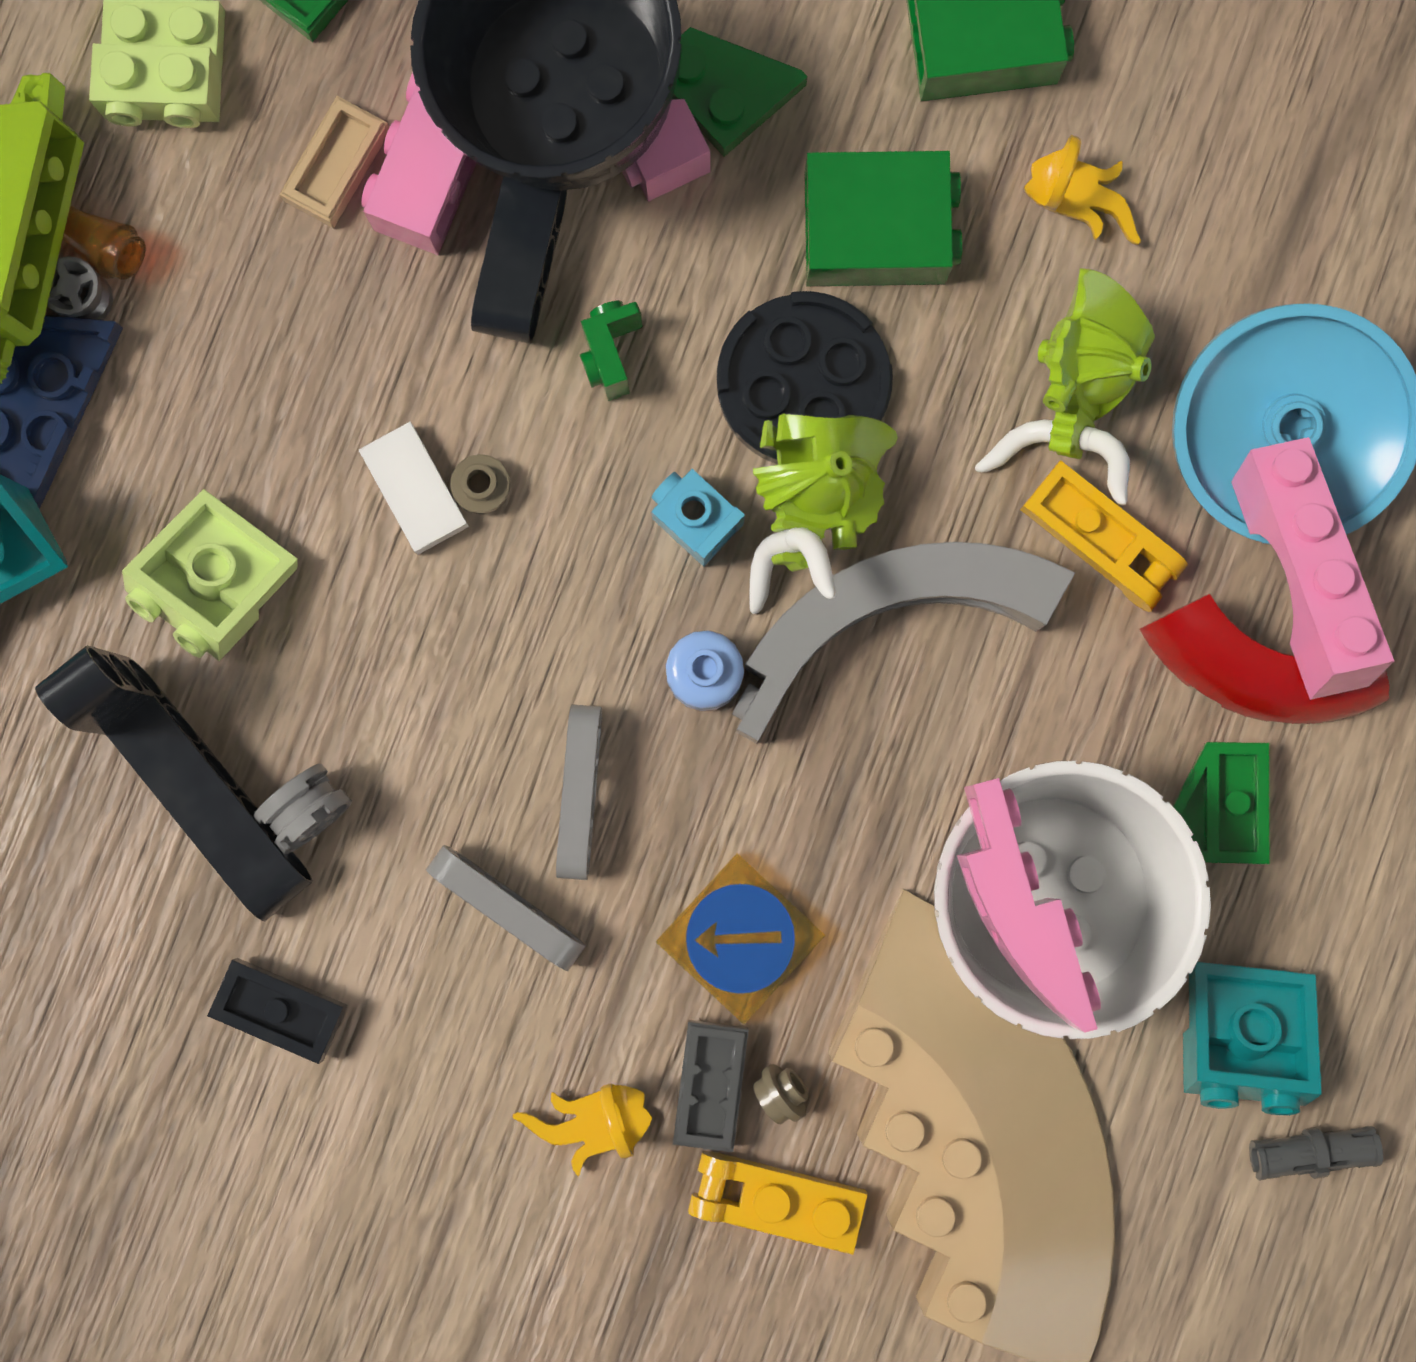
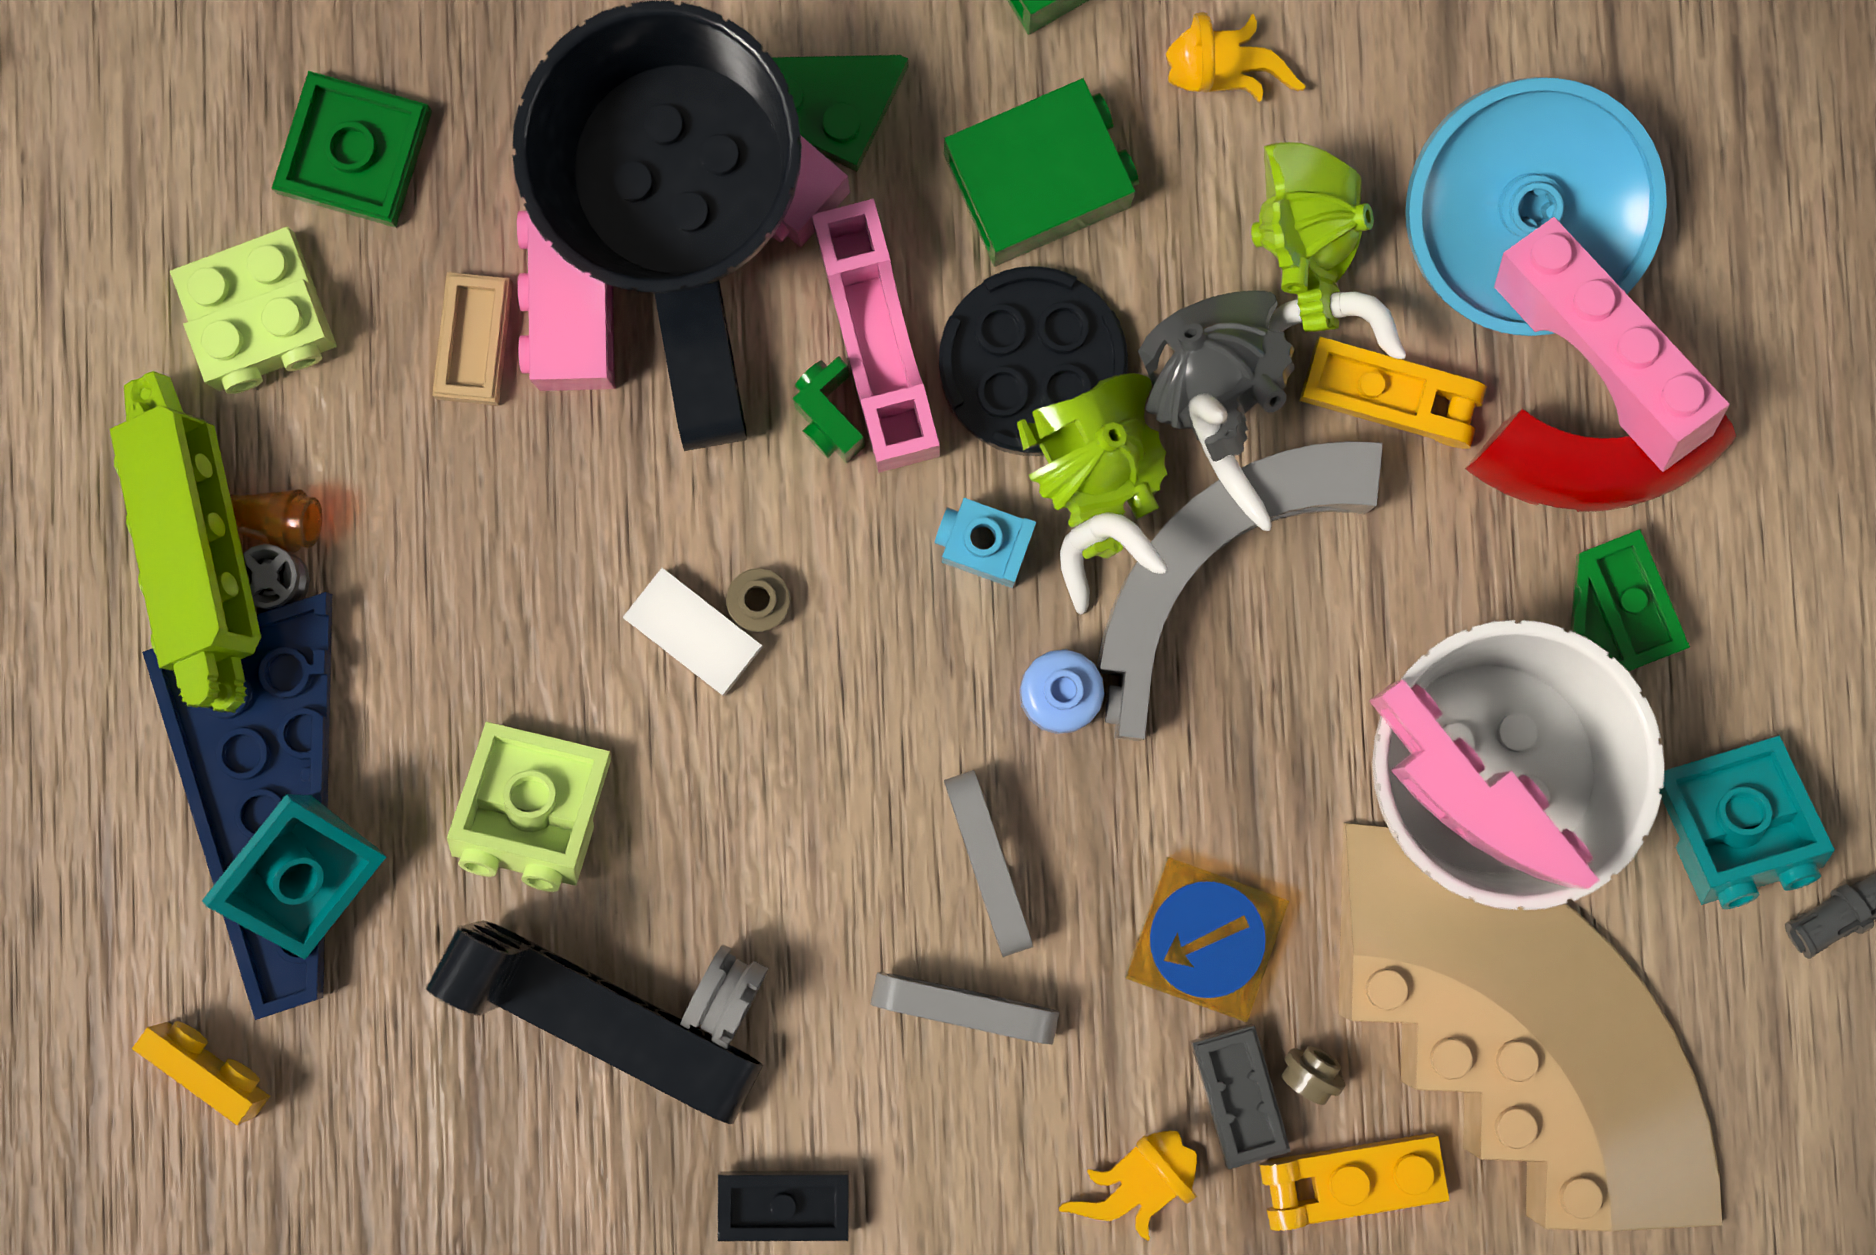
camera: 25 degrees left, 0 degrees up
(676, 298) = (876, 335): none -> bright pink arch
(956, 449) = (1217, 373): none -> dark grey helmet

